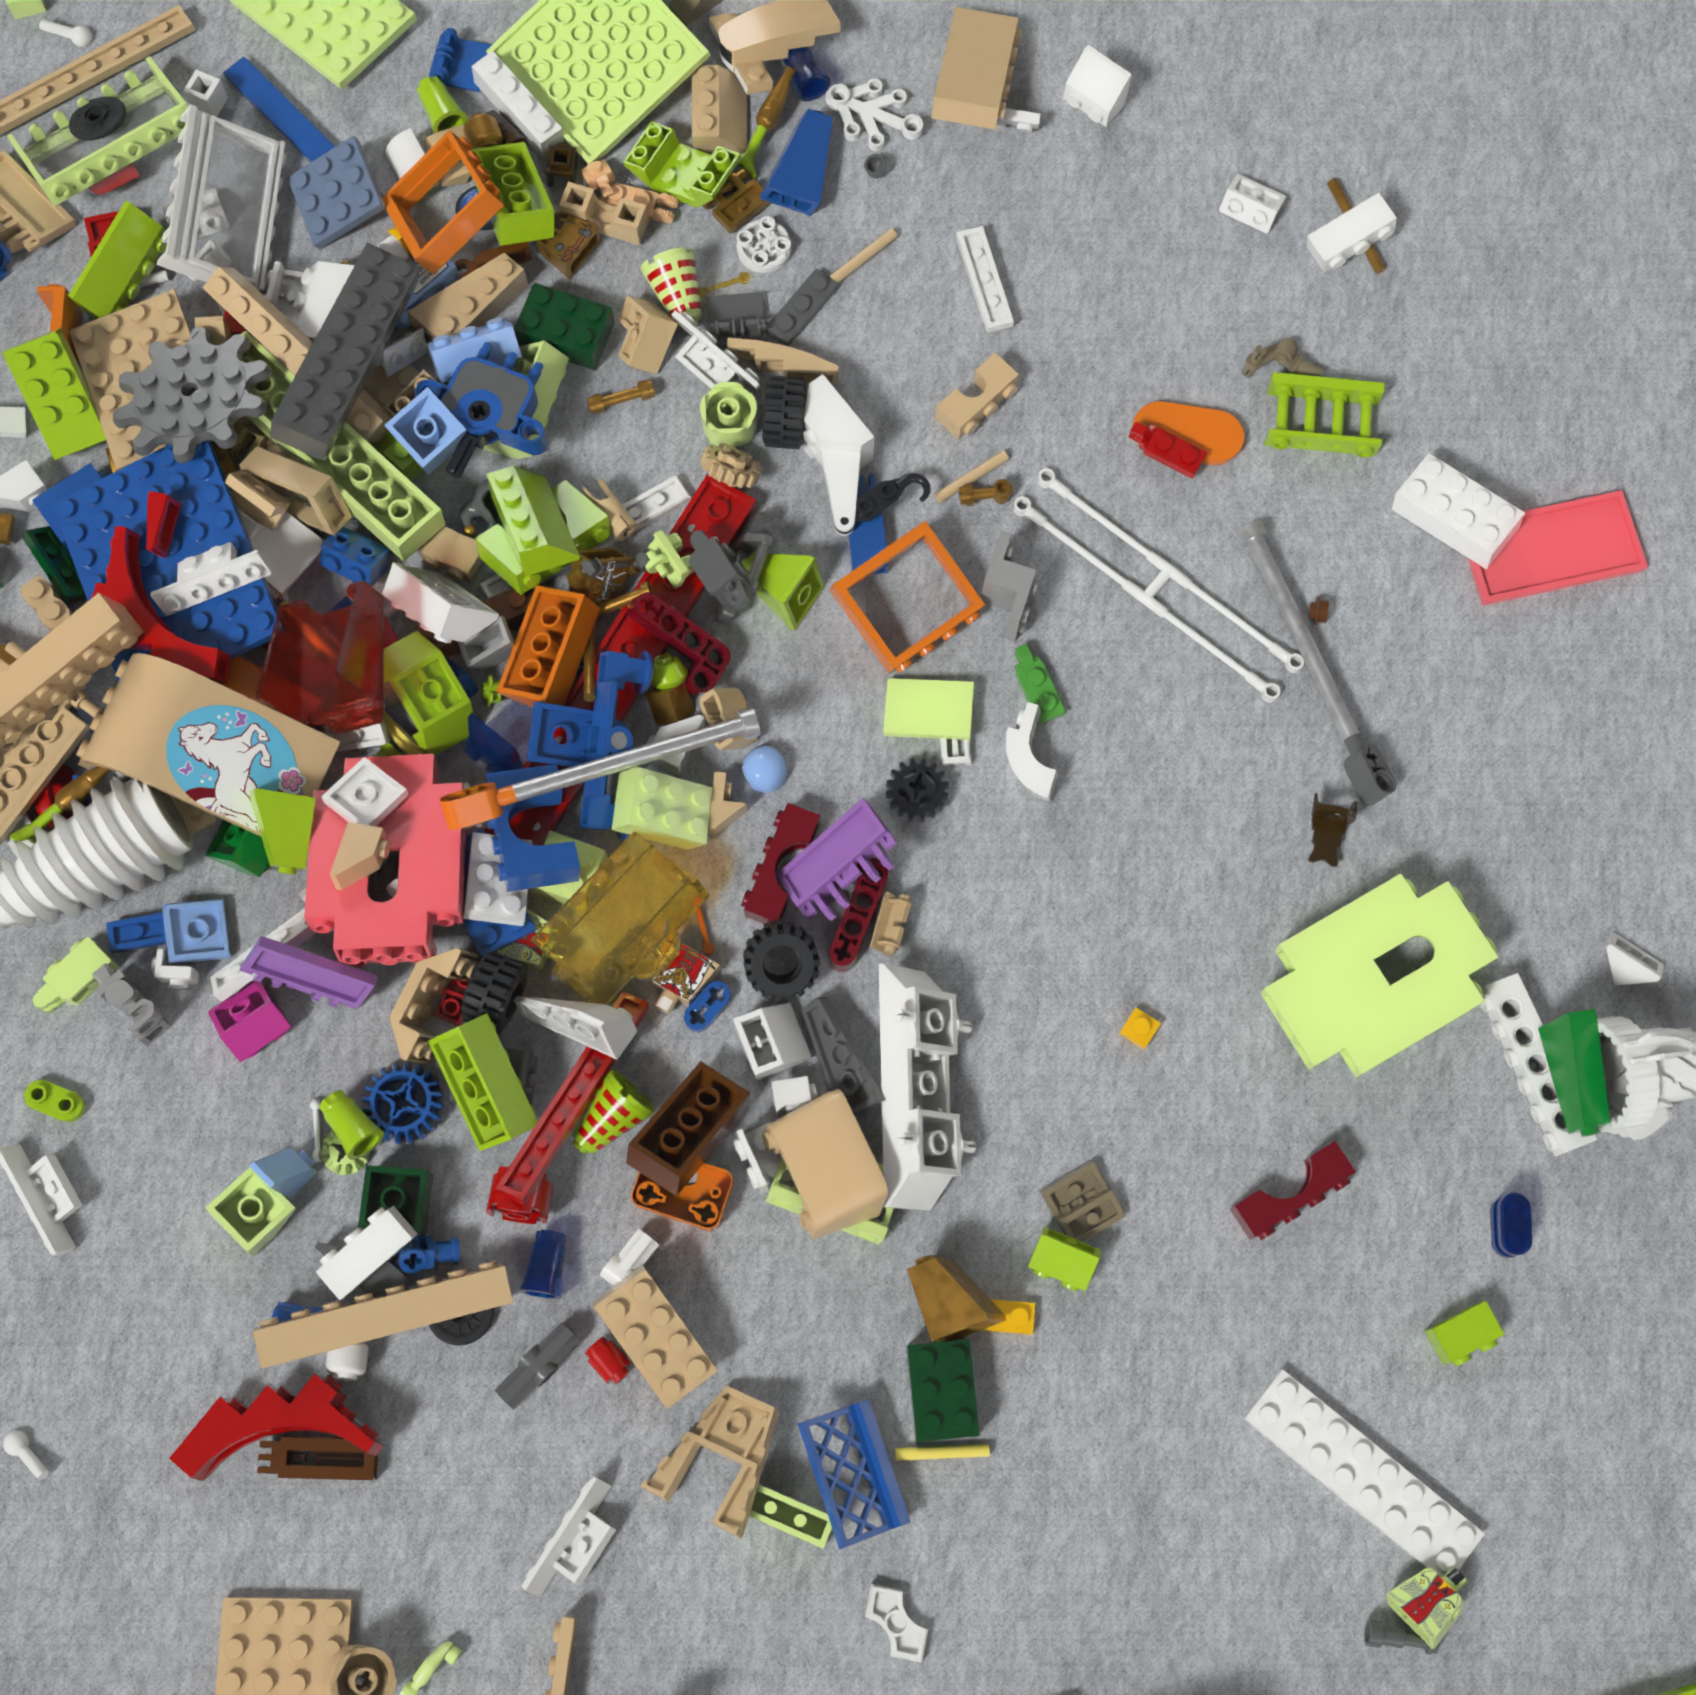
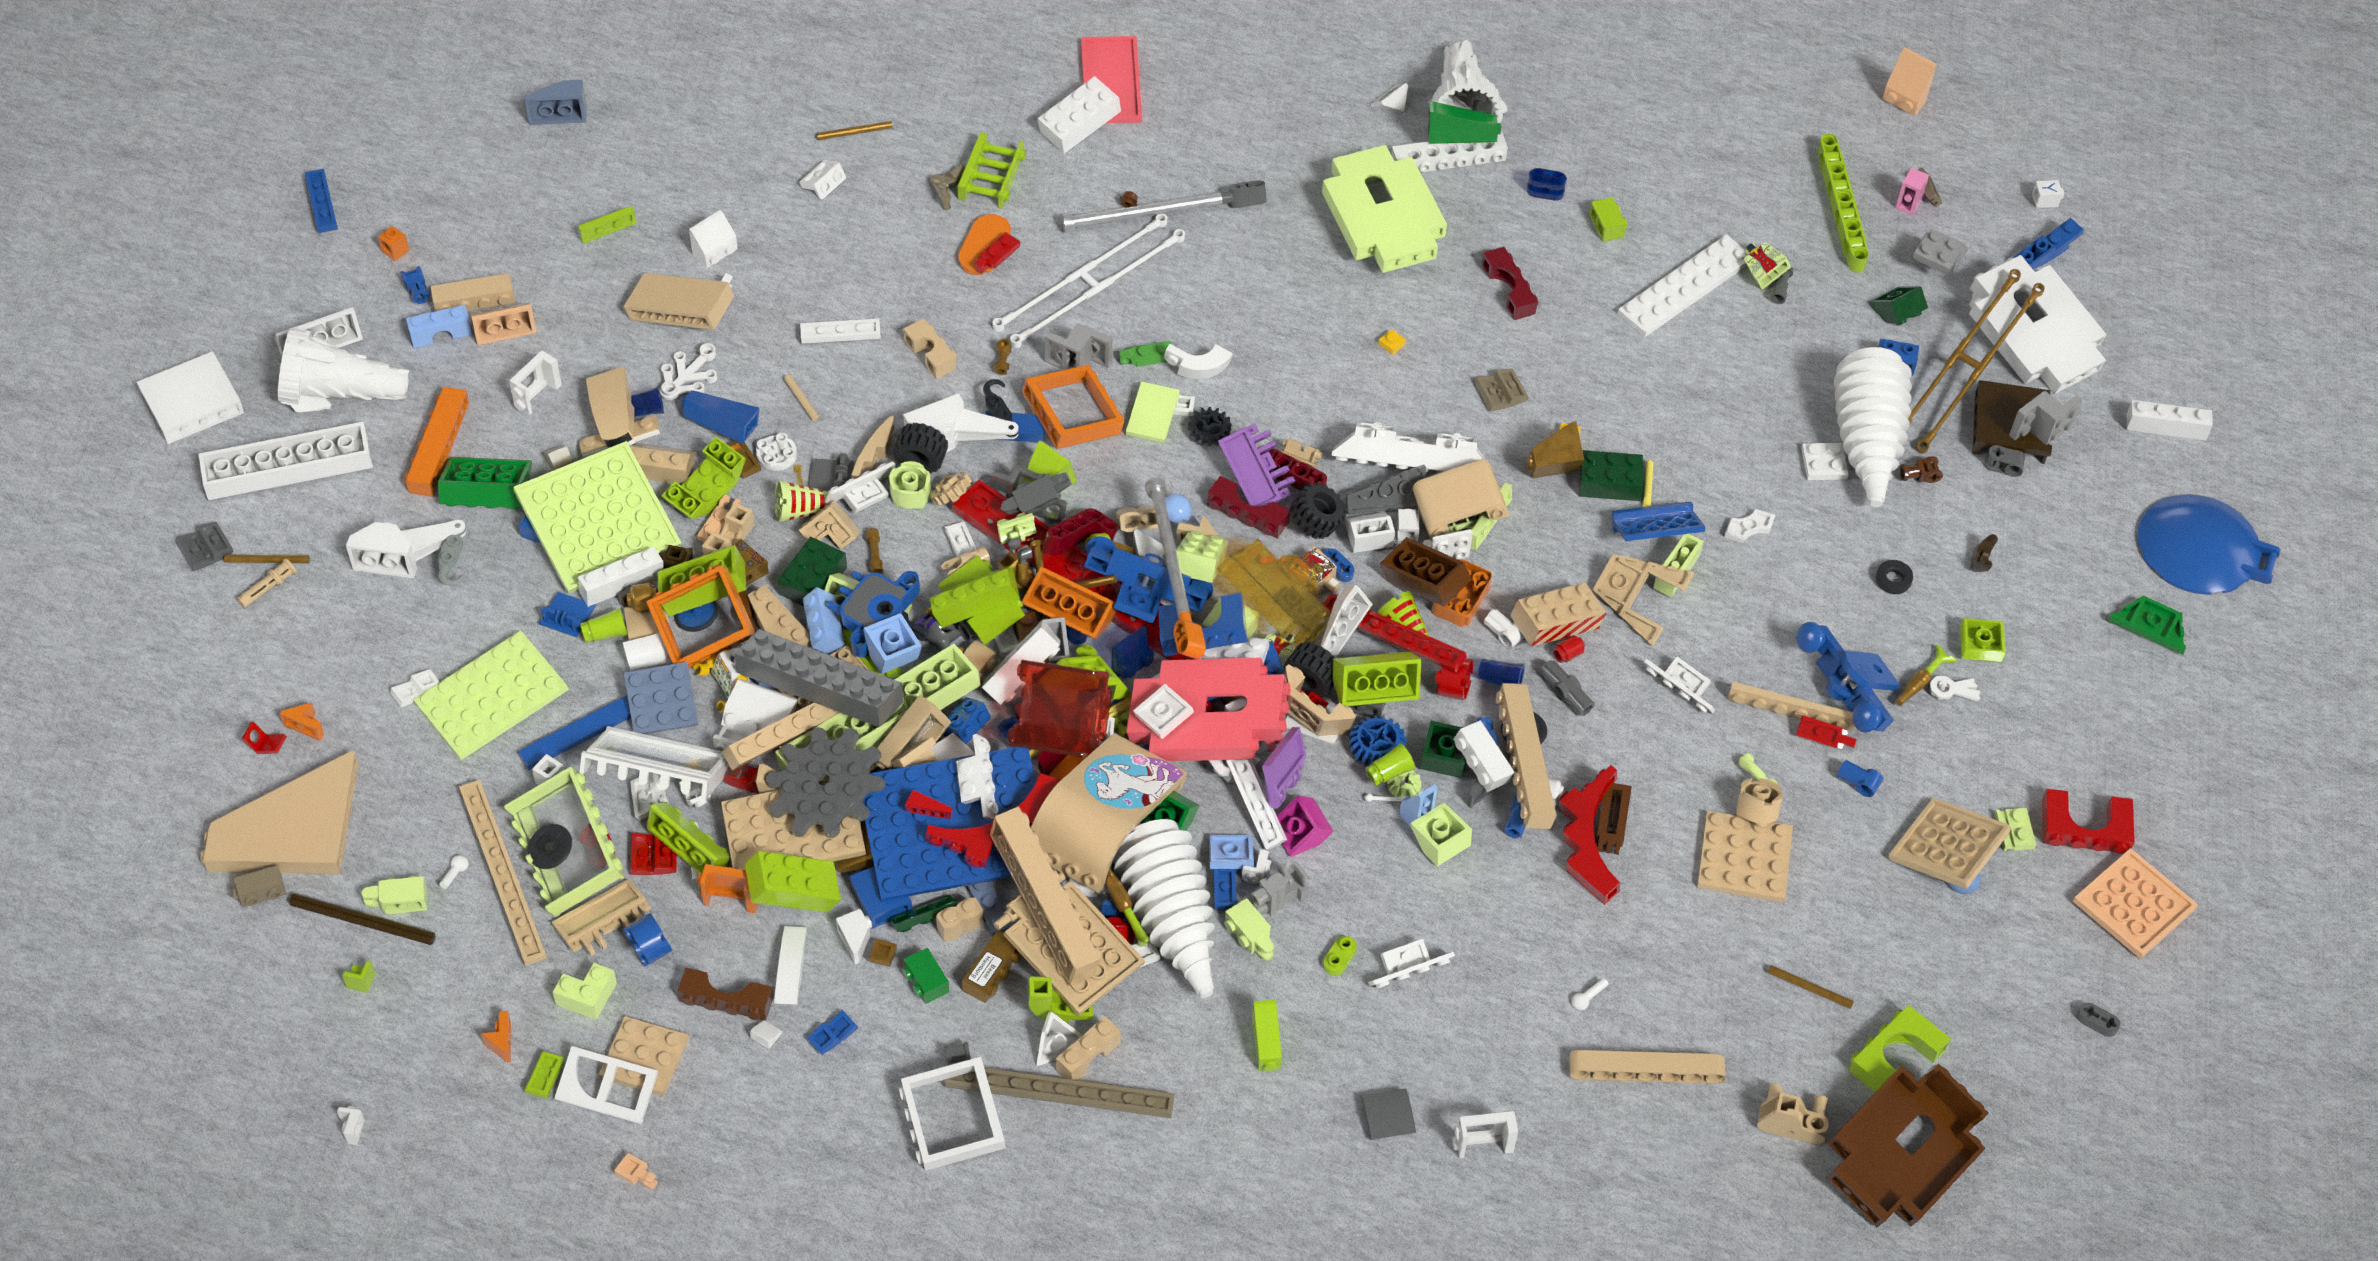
camera: 80 degrees left, 20 degrees down
(284, 827) = (1177, 763): lime slope -> none
(359, 854) = (1208, 710): tan slope -> none
(598, 175) = (695, 535): light nougat plate -> none
(767, 119) = (676, 429): pearl gold piece -> none
(801, 307) = (831, 437): dark grey plate -> none
(880, 162) = (733, 373): dark grey hinge -> none
(971, 476) = (985, 361): tan bar -> none
(1064, 1259) = (1536, 400): lime brick -> none
(1329, 825) = (1278, 223): dark brown hair -> none
(1351, 233) = (865, 128): white brick -> none

